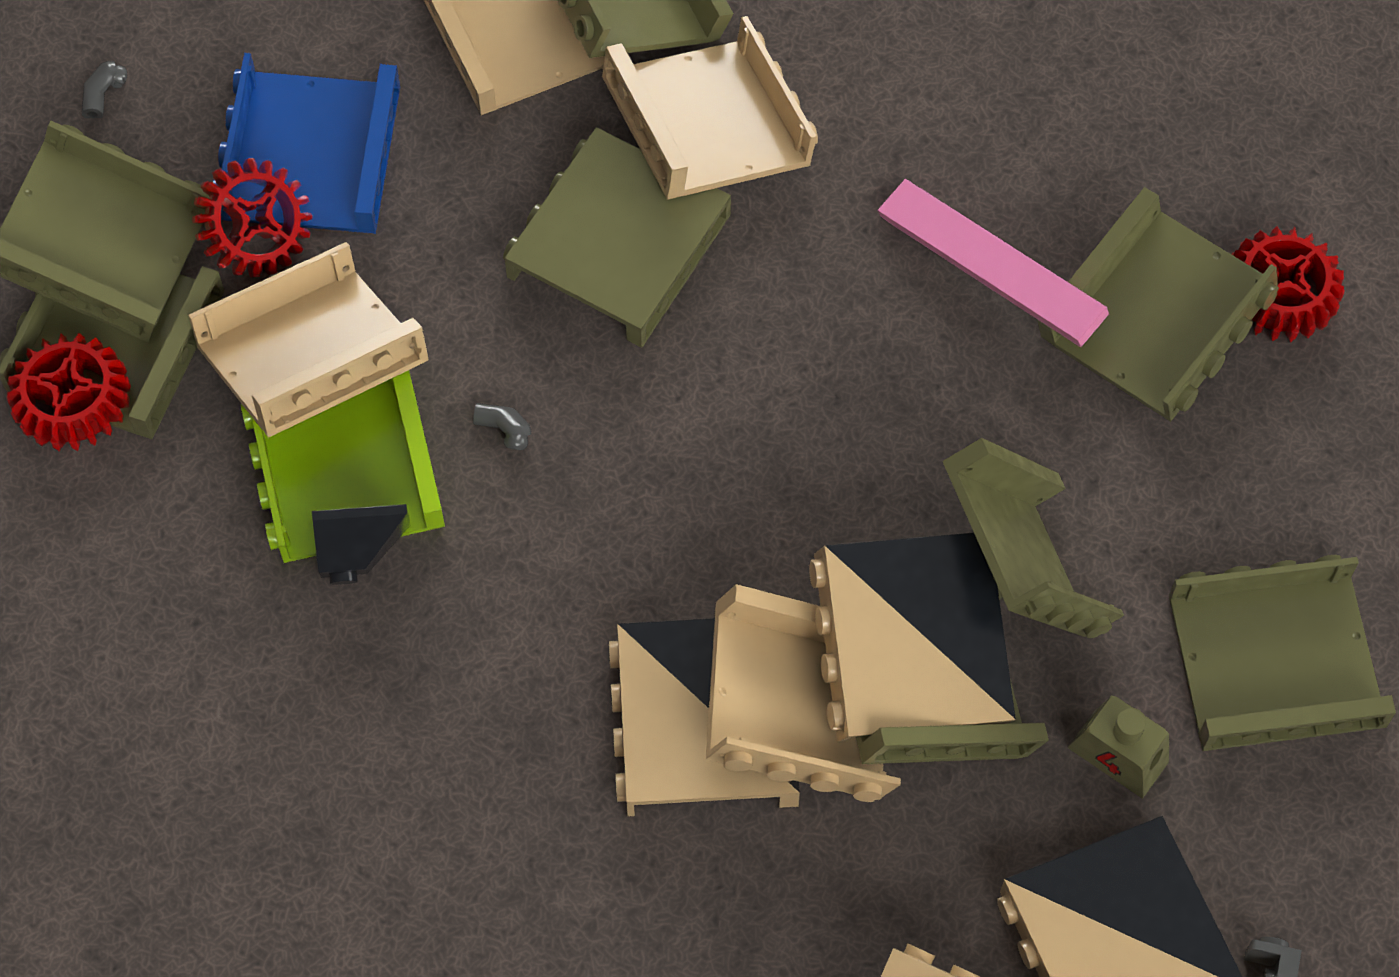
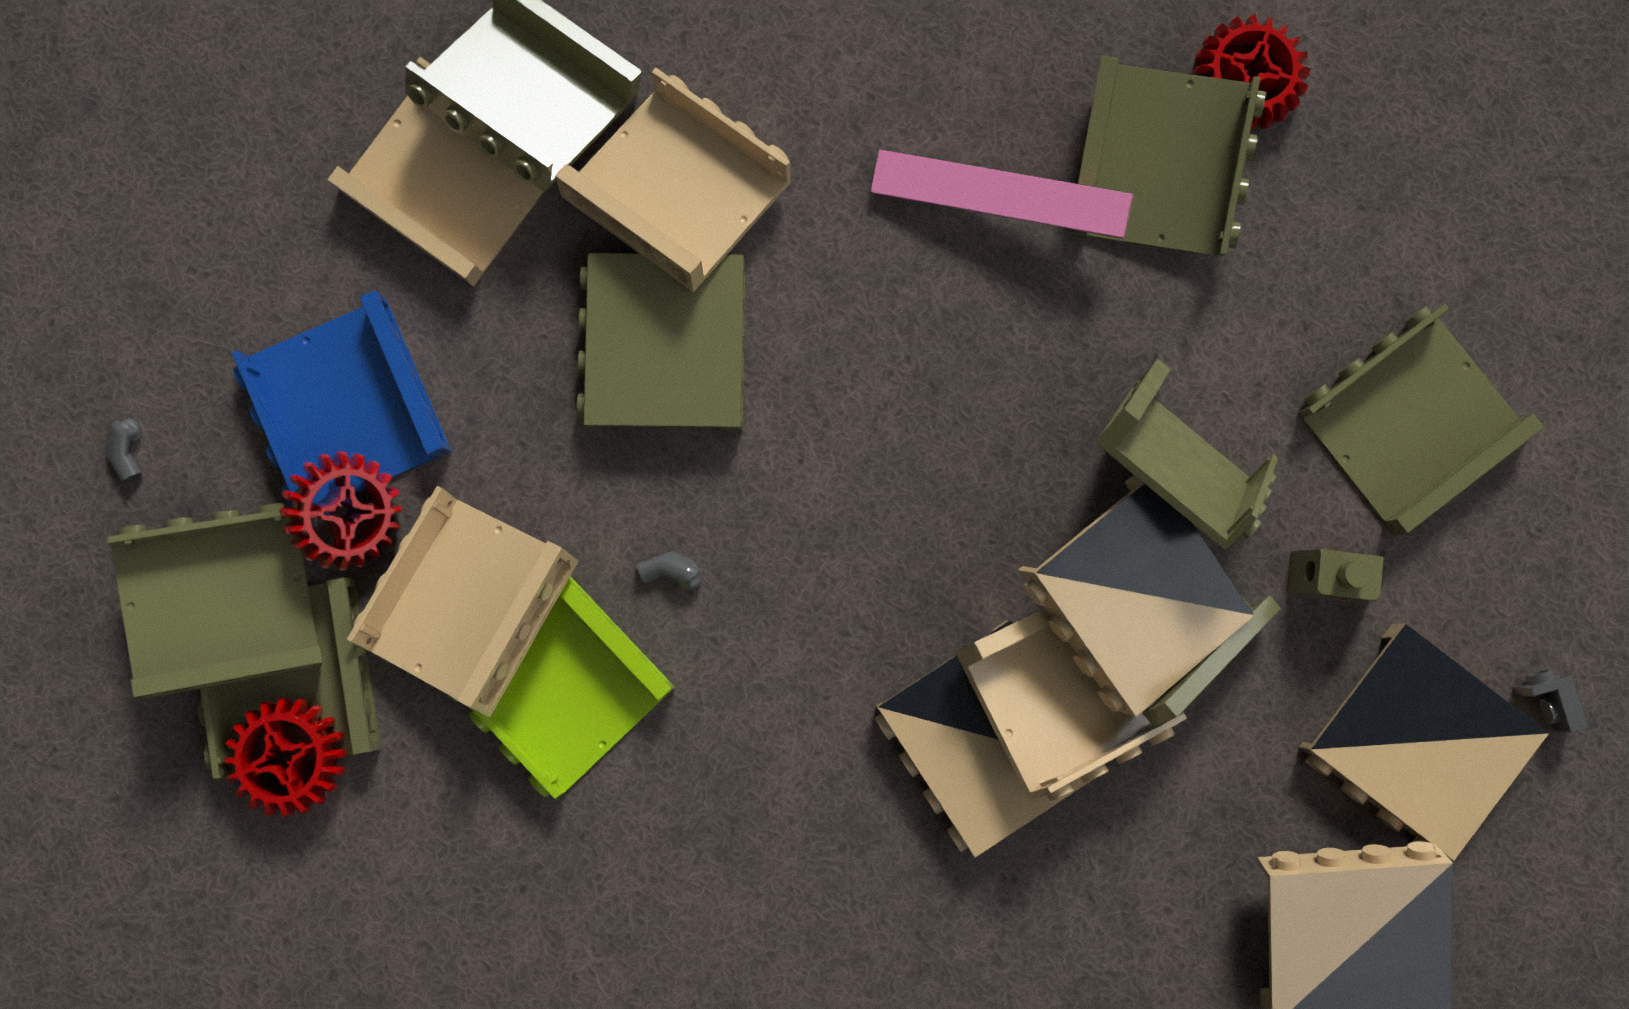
camera: 25 degrees left, 20 degrees up
(355, 539) = (615, 754): black slope -> none

